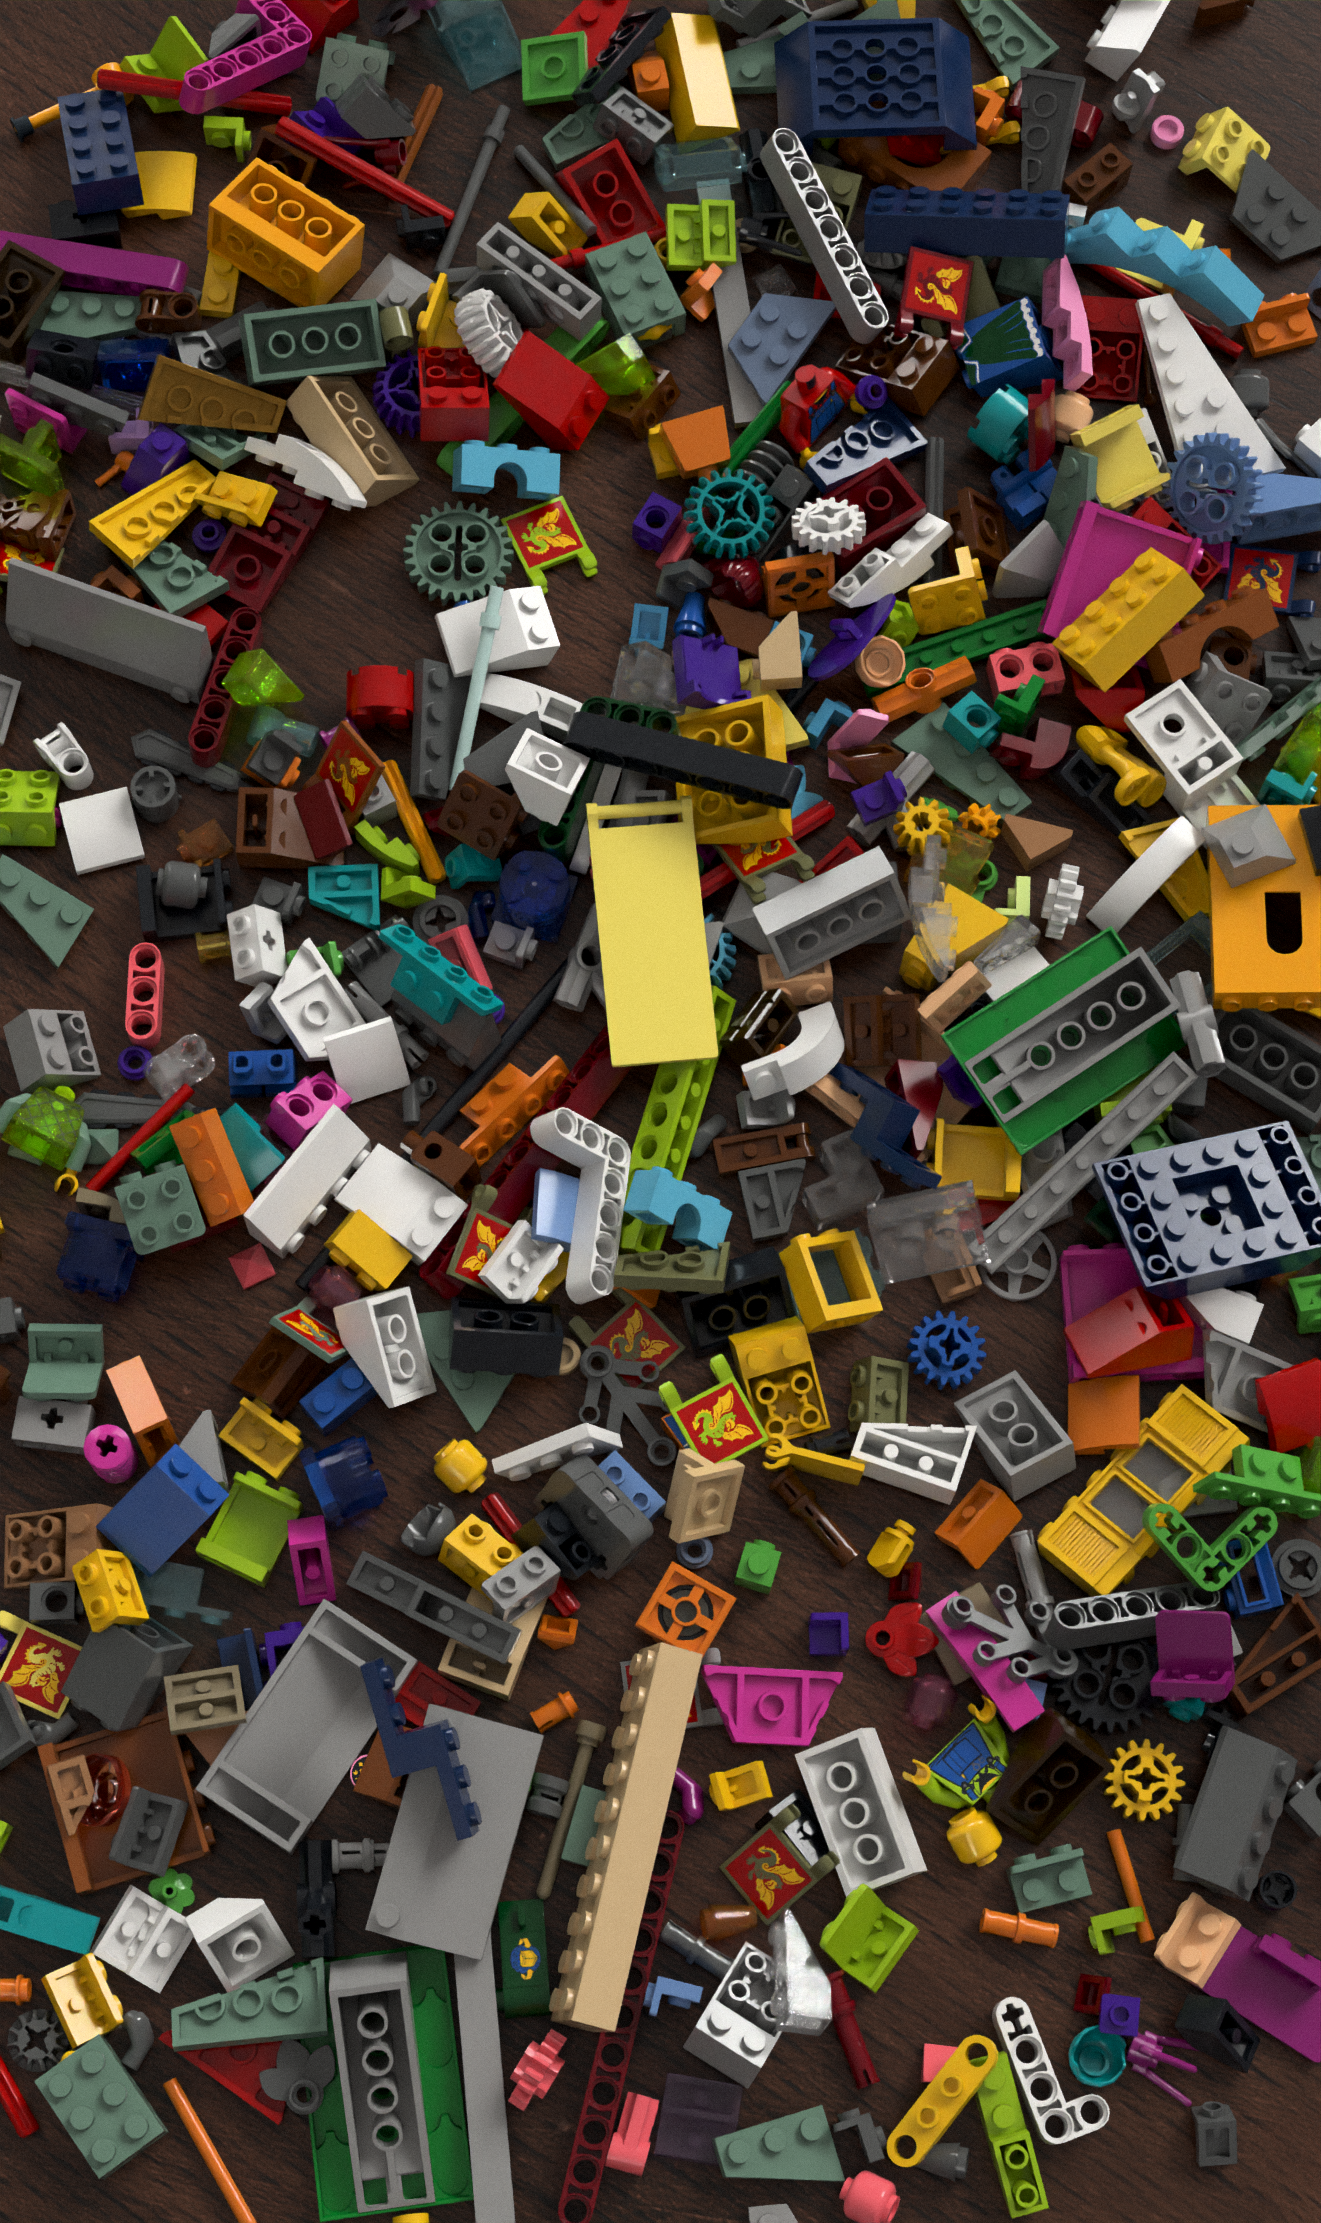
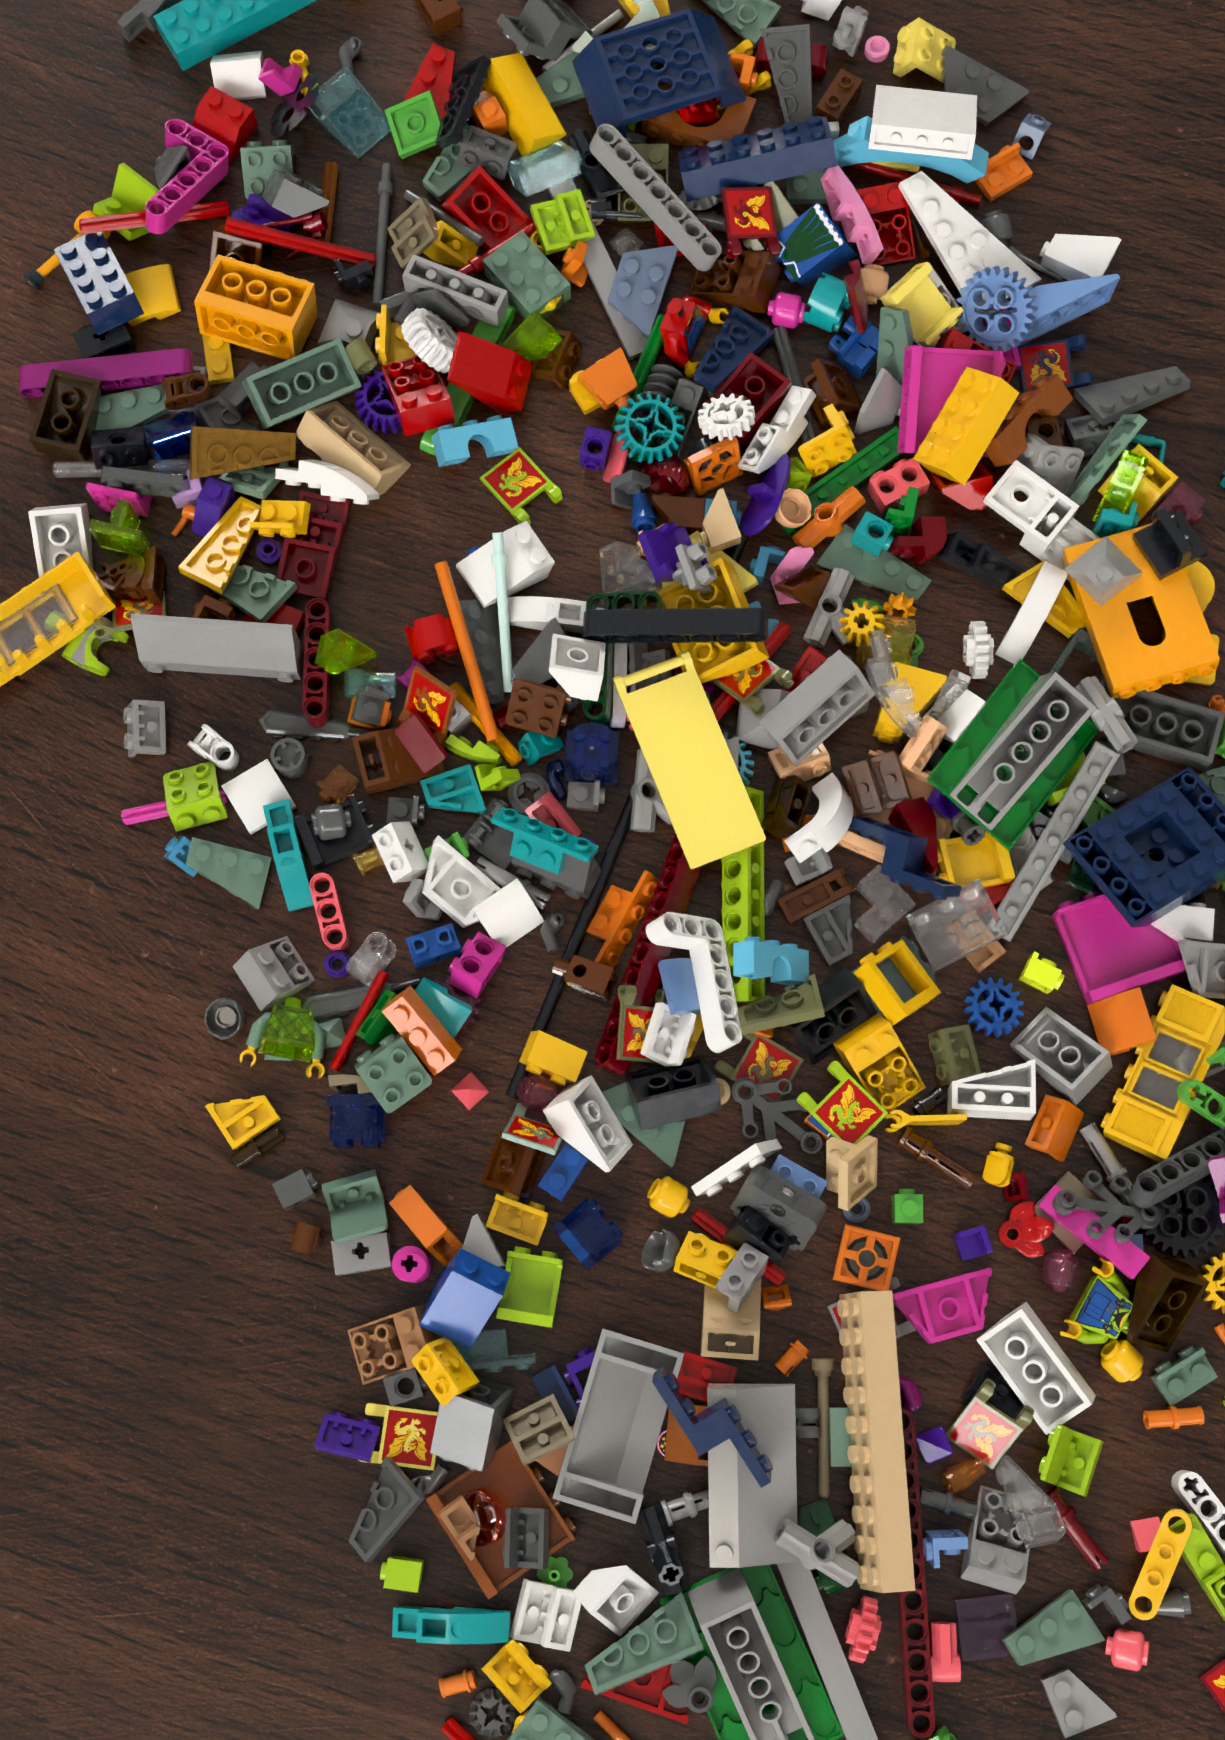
camera: 10 degrees left, 5 degrees up
(115, 911) = (288, 855): none -> teal slope
(227, 132) = (187, 240): lime bracket -> none
(307, 1183) = (493, 1019): white slope -> none
(311, 1560) = (581, 1298): dark pink slope -> none
(402, 1202) = (566, 1013): white slope -> none
(415, 723) = (467, 651): none -> orange piece
(426, 553) = (434, 519): sand green gear -> none
(434, 1607) = (684, 1310): dark grey bracket -> none
(510, 195) = (413, 231): none -> dark tan slope
(525, 1950) = (828, 1545): none -> light grey piece
(649, 624) = (613, 527): dark azure bracket -> none
(700, 1872) = (933, 1445): none -> dark purple slope
(725, 698) = (690, 570): none -> light grey hips
(740, 1786) = (943, 1373): yellow bracket -> none
(863, 393) = (718, 308): dark purple plate -> none
(879, 799) = (823, 611): dark purple bracket -> none
(950, 419) = (786, 310): none -> dark pink head
(980, 1120) = (970, 831): none -> dark grey bush
(1017, 900) = (945, 657): yellowish green bracket -> none
(1020, 1327) = (1041, 974): none -> neon yellow brick
(1022, 1264) = (1029, 926): light grey wheel -> none
(1033, 840) = (941, 609): medium nougat slope -> none
(1131, 1334) = (1126, 959): red slope -> none
(1137, 779) = (974, 524): yellow piece -> none
(1187, 233) = (923, 122): none -> white panel

